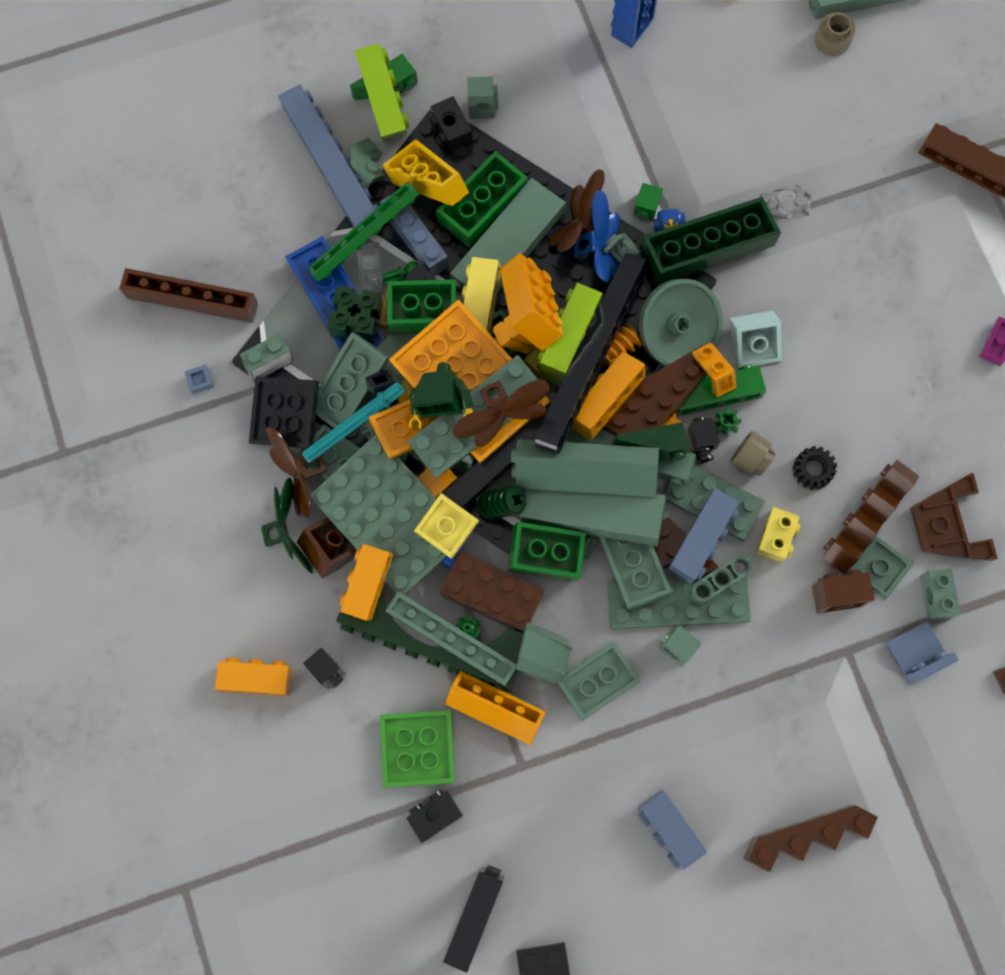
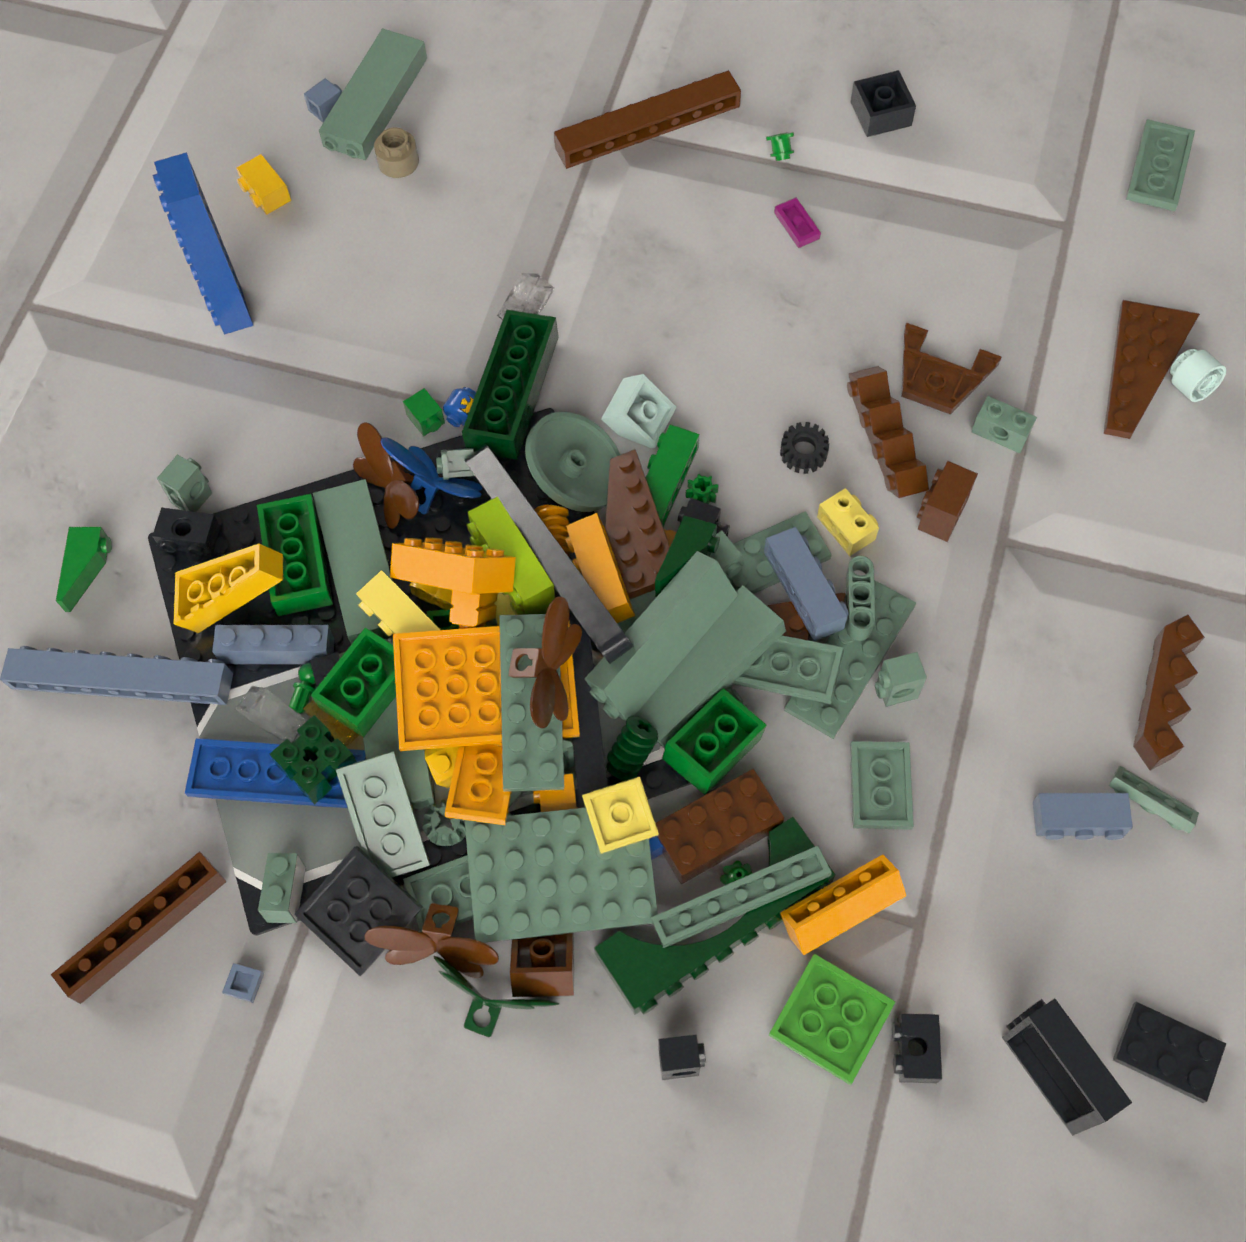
camera: 55 degrees left, 10 degrees down
(253, 677) = (631, 1148): light orange brick -> none
(362, 156) = (143, 636): sand green plate -> none
(365, 229) = (232, 688): green plate -> none
(366, 582) = (618, 942): light orange brick -> none
(378, 383) = (422, 783): black brick -> none
(379, 86) = (95, 569): lime brick -> none
(382, 400) = (434, 836): teal axle -> none
(439, 395) = (482, 718): dark green torso -> none
(543, 655) = (822, 816): sand green slope -> none
(716, 366) = (646, 456): light orange bracket -> none
(719, 873) = (1154, 800): none -> sand green plate
(753, 454) = (753, 488): dark tan piece -> none
(884, 566) = (939, 448): sand green tile -> none
(919, 653) = (1049, 479): sand blue bracket -> none

